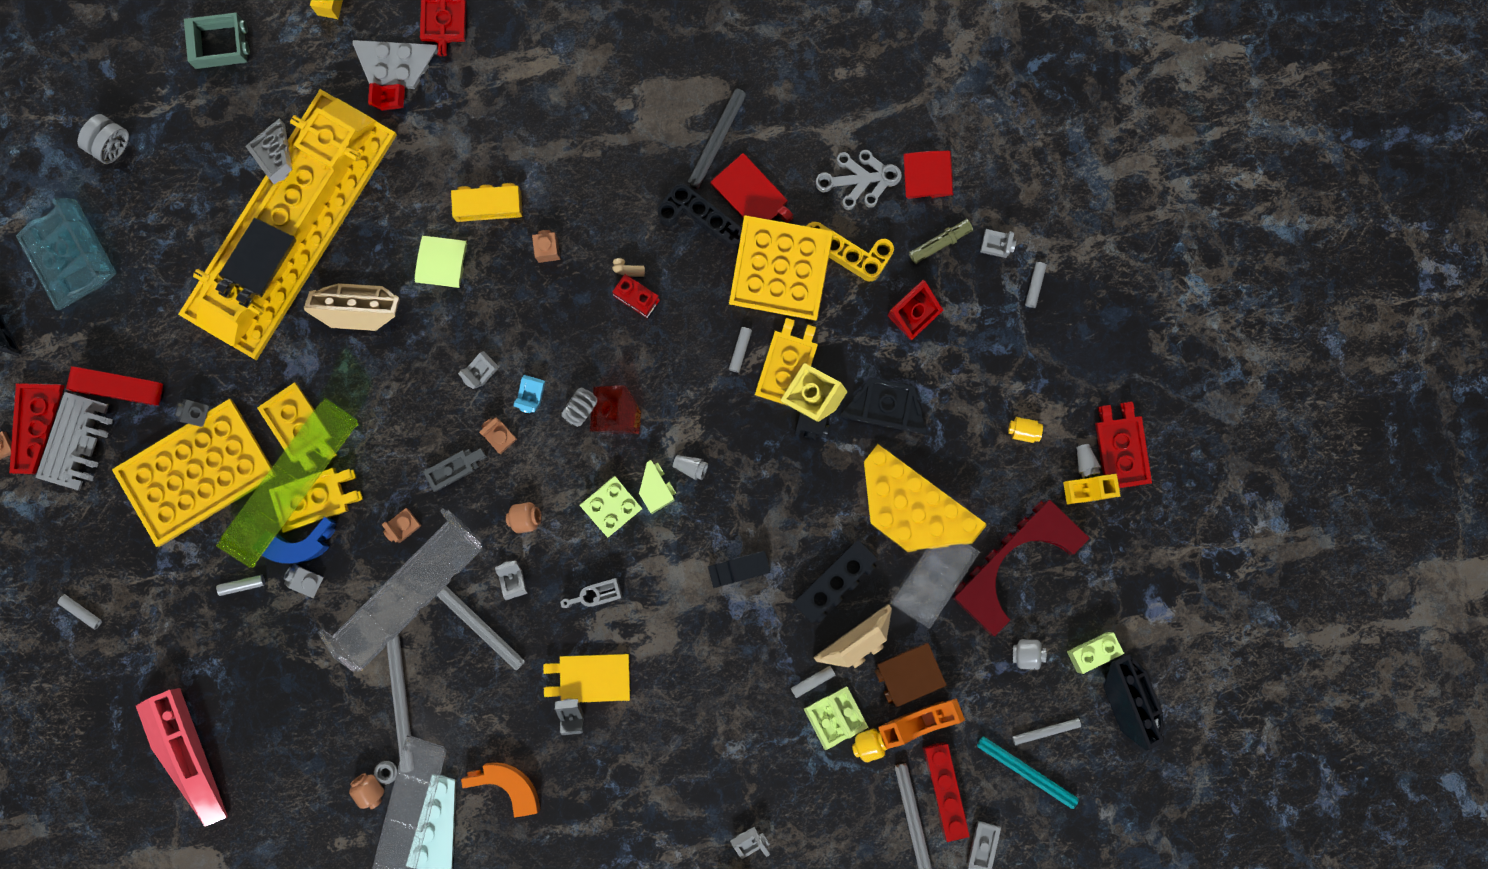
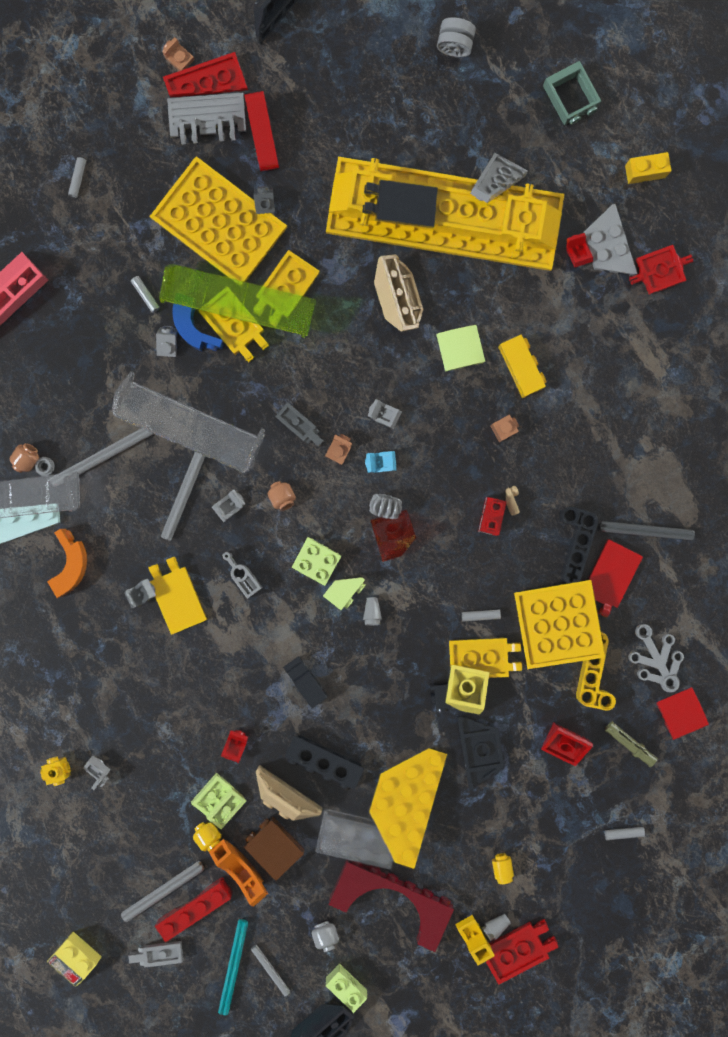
camera: 70 degrees right, 5 degrees up
(65, 253) = (353, 46): clear light blue piece -> none
(401, 526) = (238, 401): nougat bracket -> none
(780, 675) = (235, 746): none -> red bracket
(813, 681) = (240, 773): light grey piece -> none
(998, 243) = (647, 791): light grey bracket -> none

